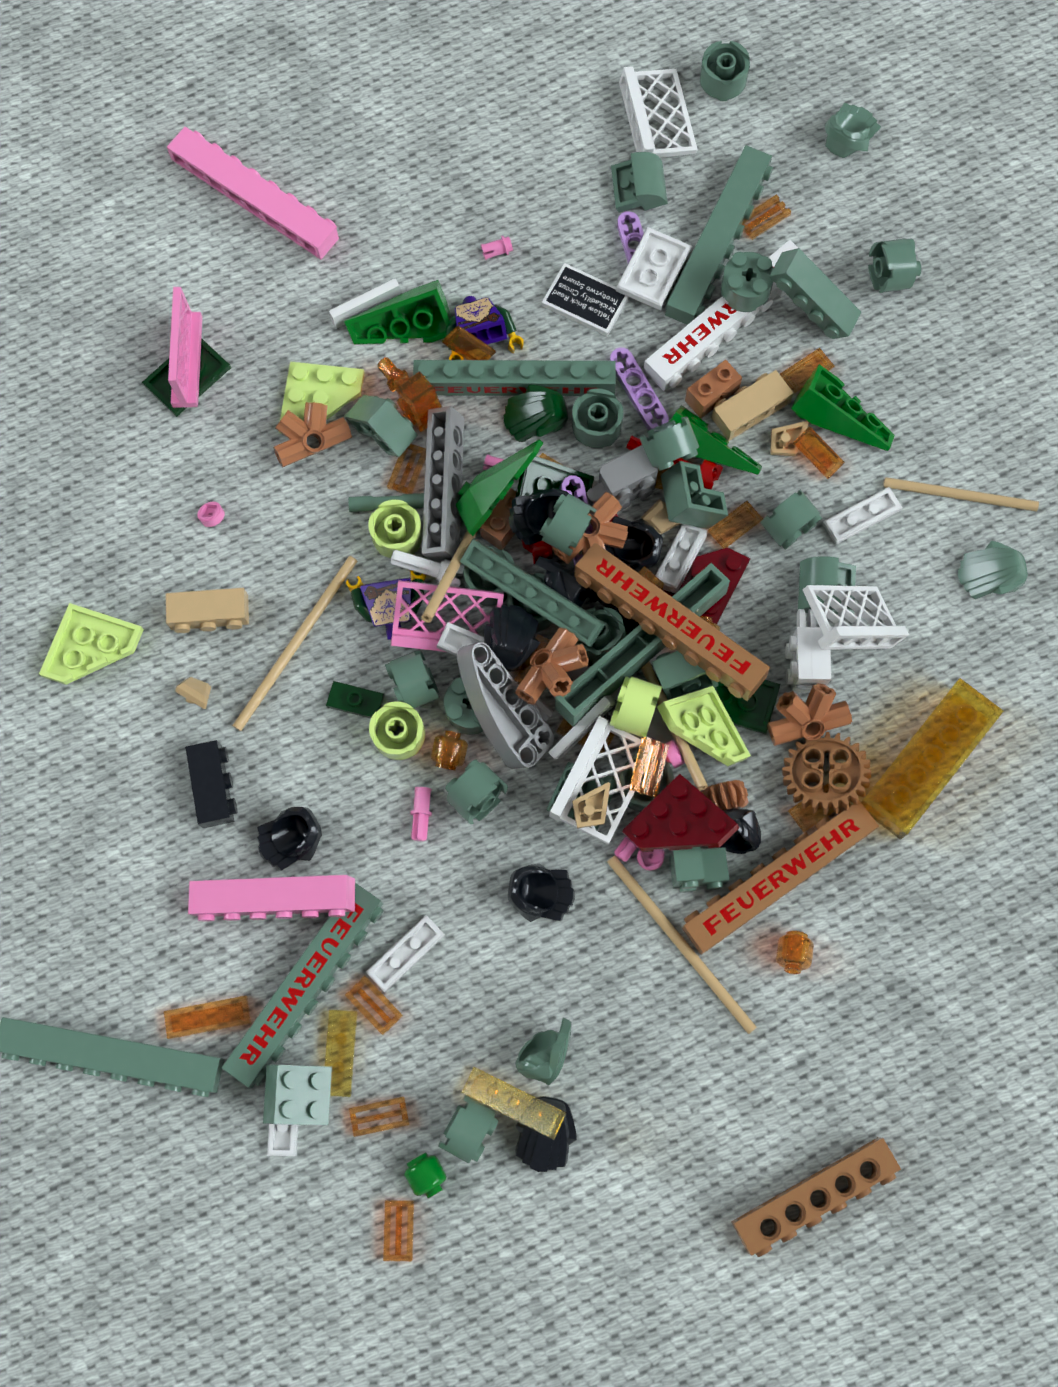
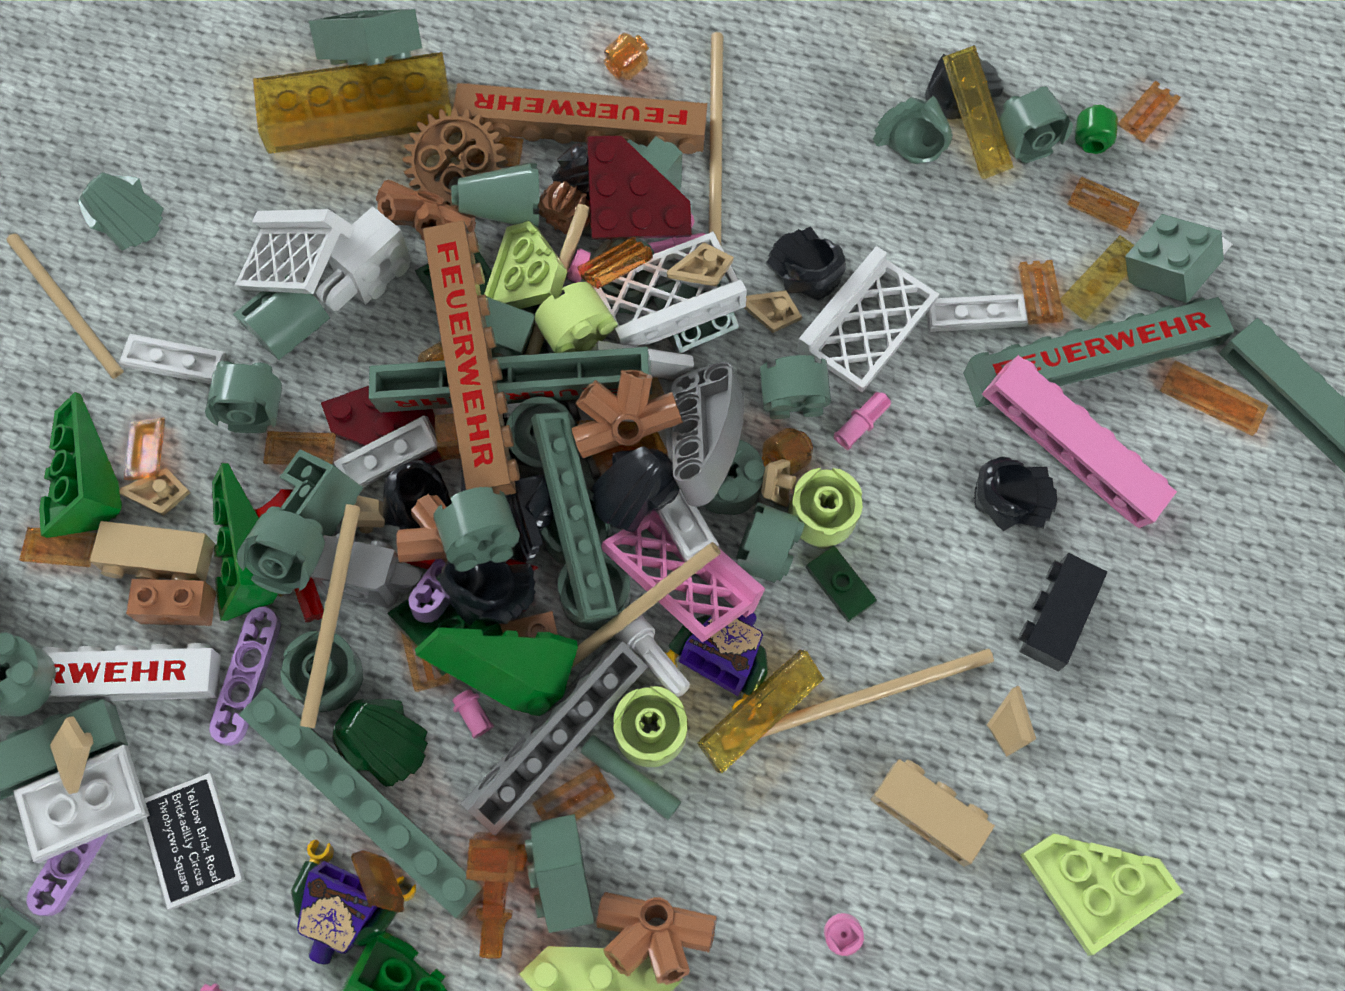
camera: 145 degrees left, 5 degrees down
(342, 586) = (760, 711): none -> clear yellow tile
(436, 719) = (778, 482): none -> tan piece
(492, 888) = (850, 297): none -> white fence
(537, 844) = (773, 309): none -> tan piece
(612, 435) = (330, 616): none -> tan piece
(678, 277) = (71, 753): none -> tan piece
(769, 765) = (500, 195): none -> sand green cone
(965, 799) = (366, 36): none -> sand green brick

